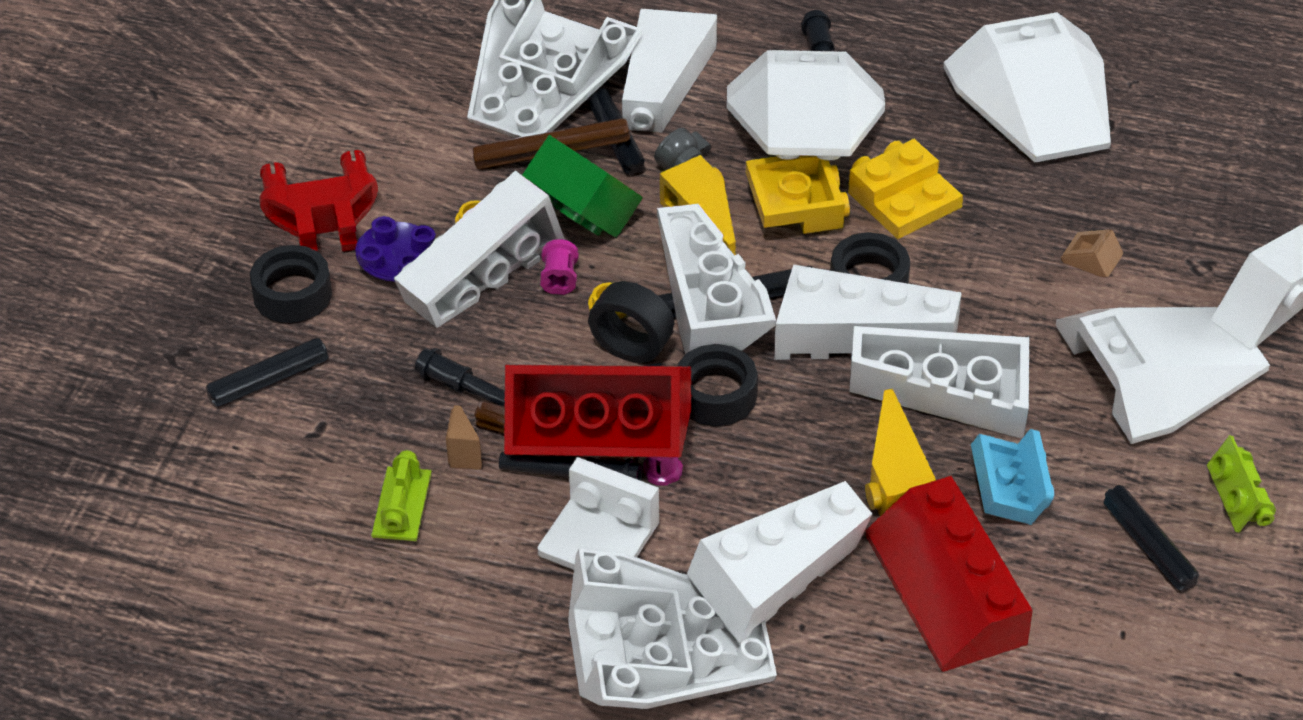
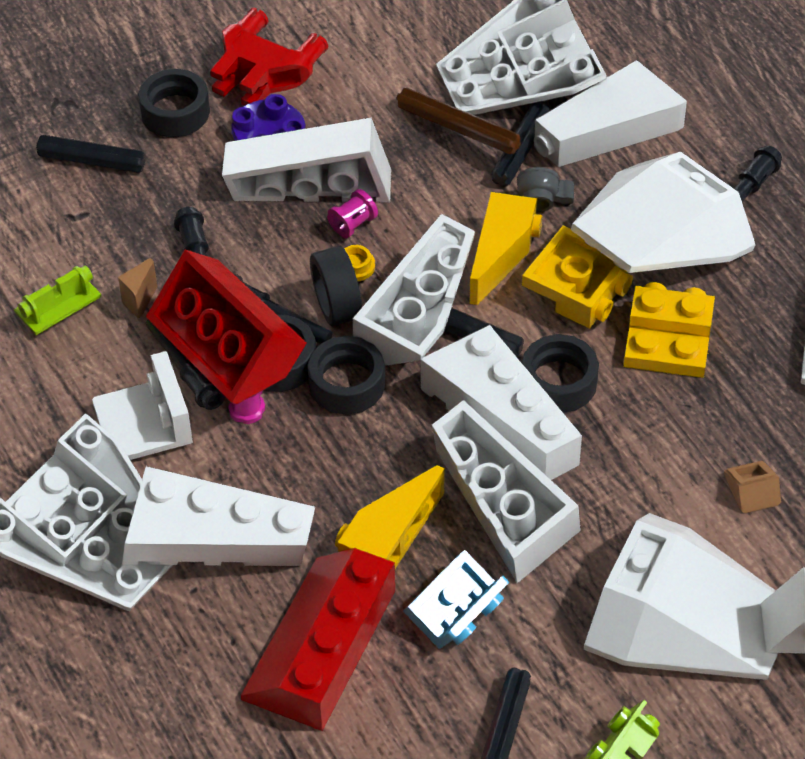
camera: 45 degrees right, 5 degrees up
(582, 188) = (421, 164): green piece -> none

